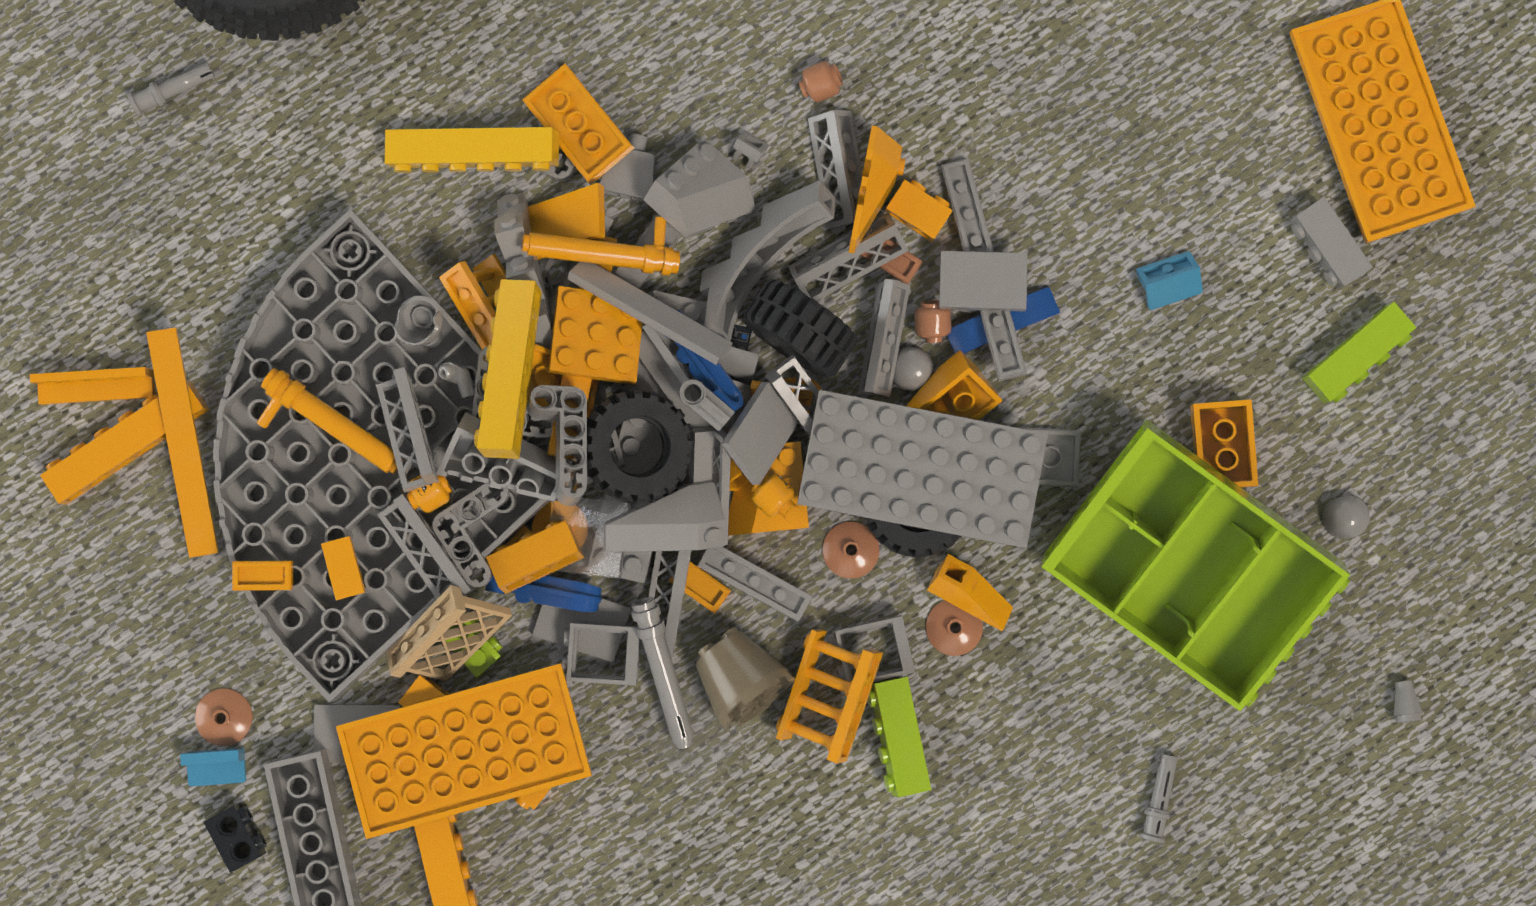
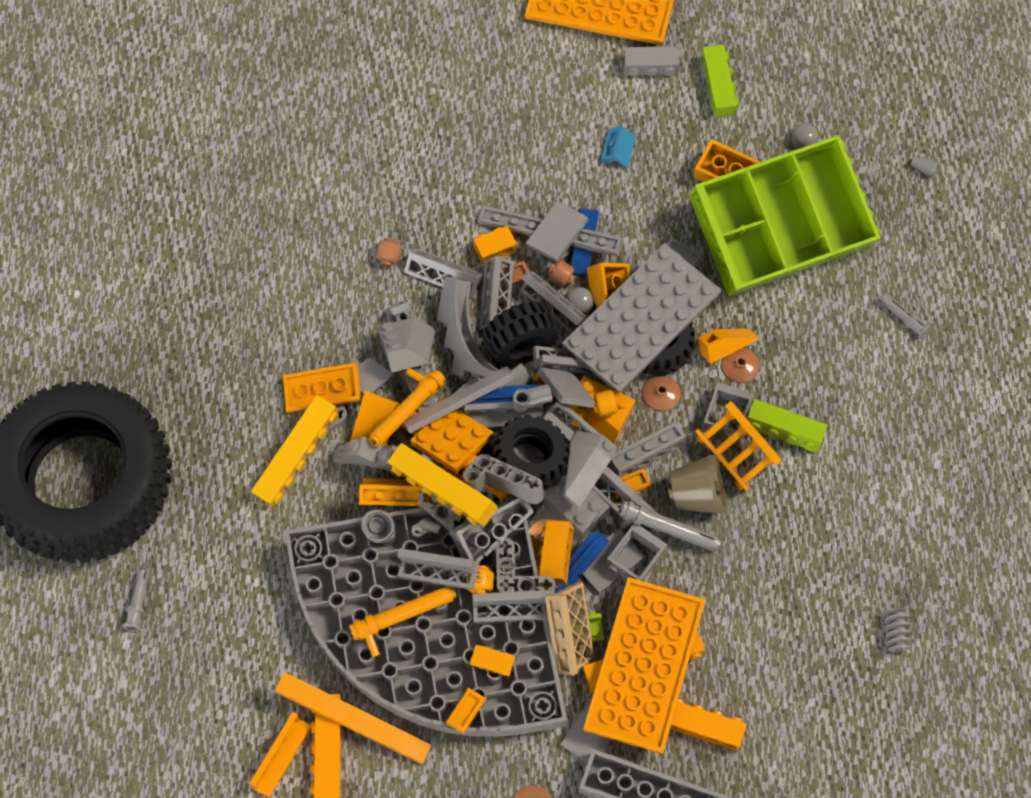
camera: 55 degrees left, 20 degrees down
(877, 181) = (460, 251): light orange wedge -> none

